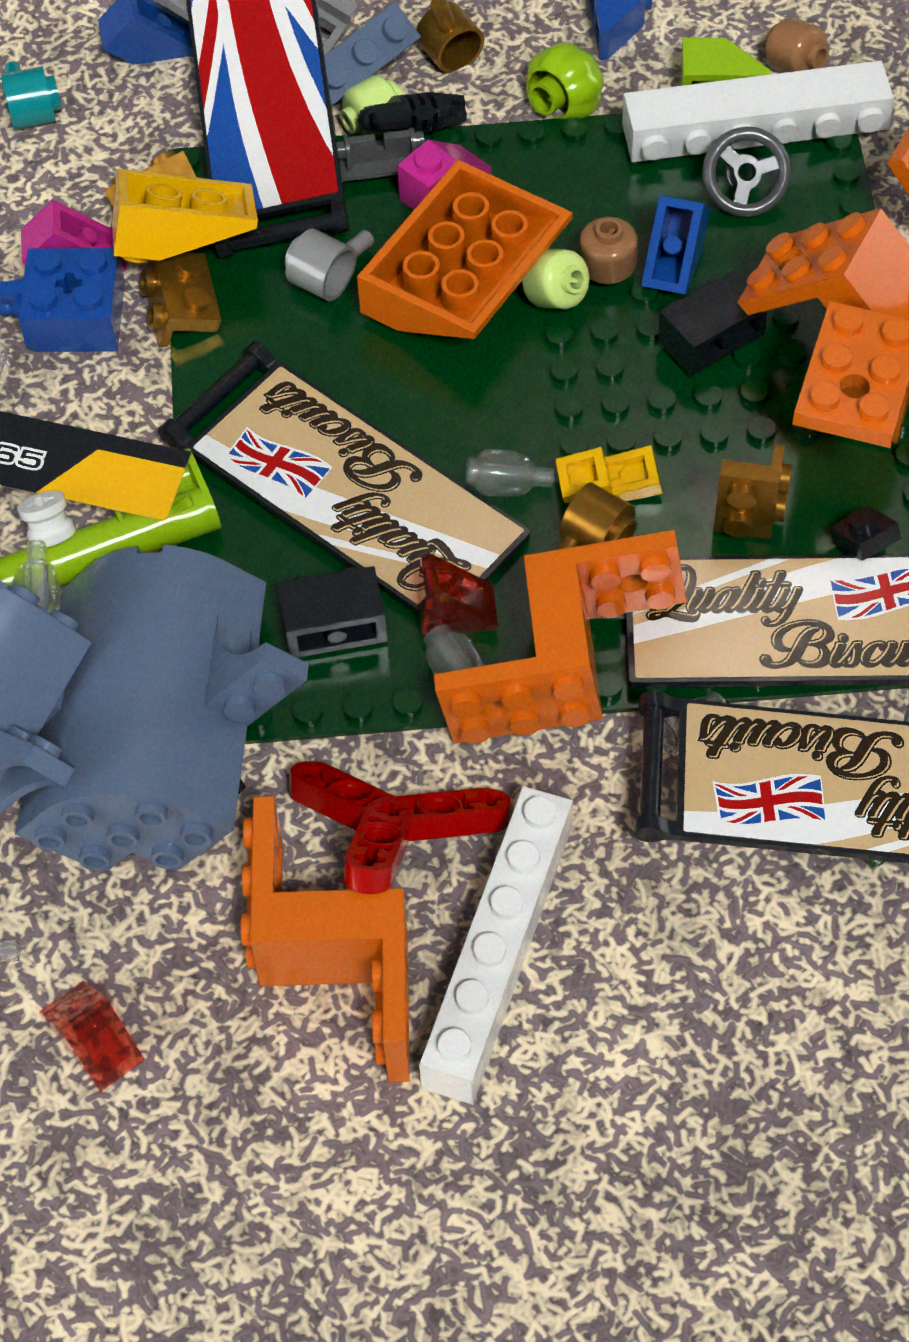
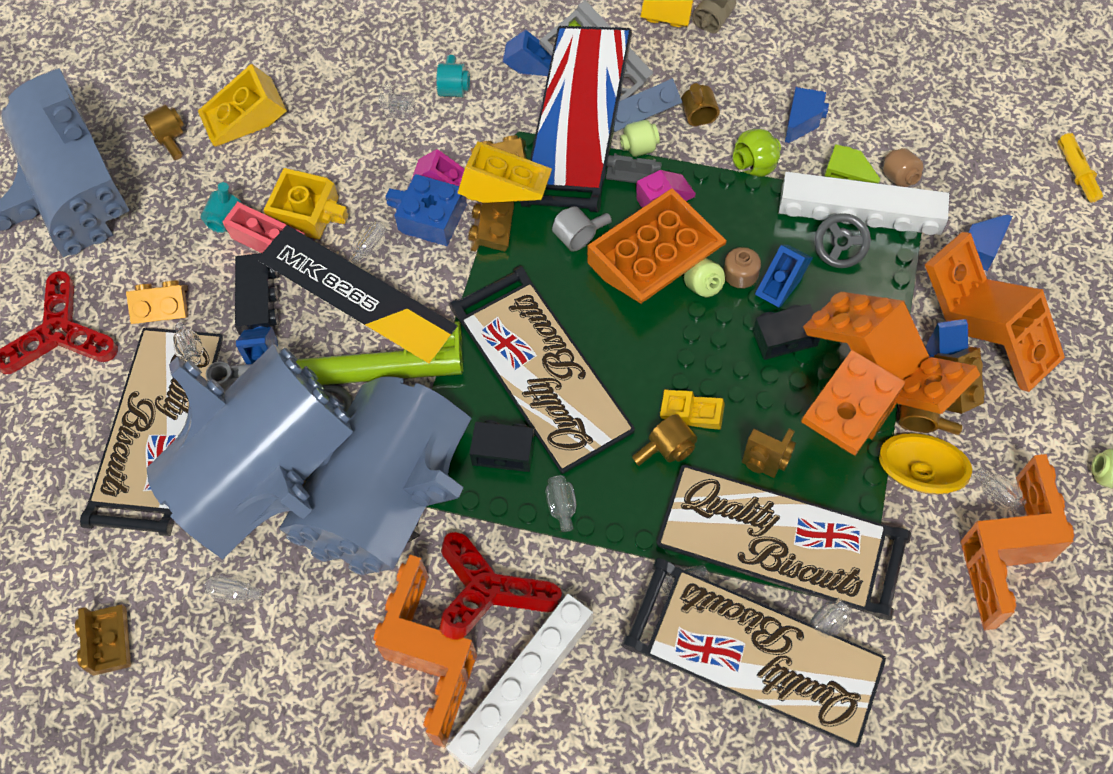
camera: 20 degrees right, 5 degrees up
(39, 576) = (345, 381): clear plant -> none
(47, 517) = (364, 342): white wheel -> none
(93, 1034) = (282, 658): clear red slope -> none
(419, 111) = (661, 149): black hinge -> none
(454, 597) = (574, 461): clear red slope -> none
(505, 473) = (633, 390): clear plant -> none
(562, 679) = (623, 508): orange bracket -> none
(865, 533) = (830, 494): black plate -> none

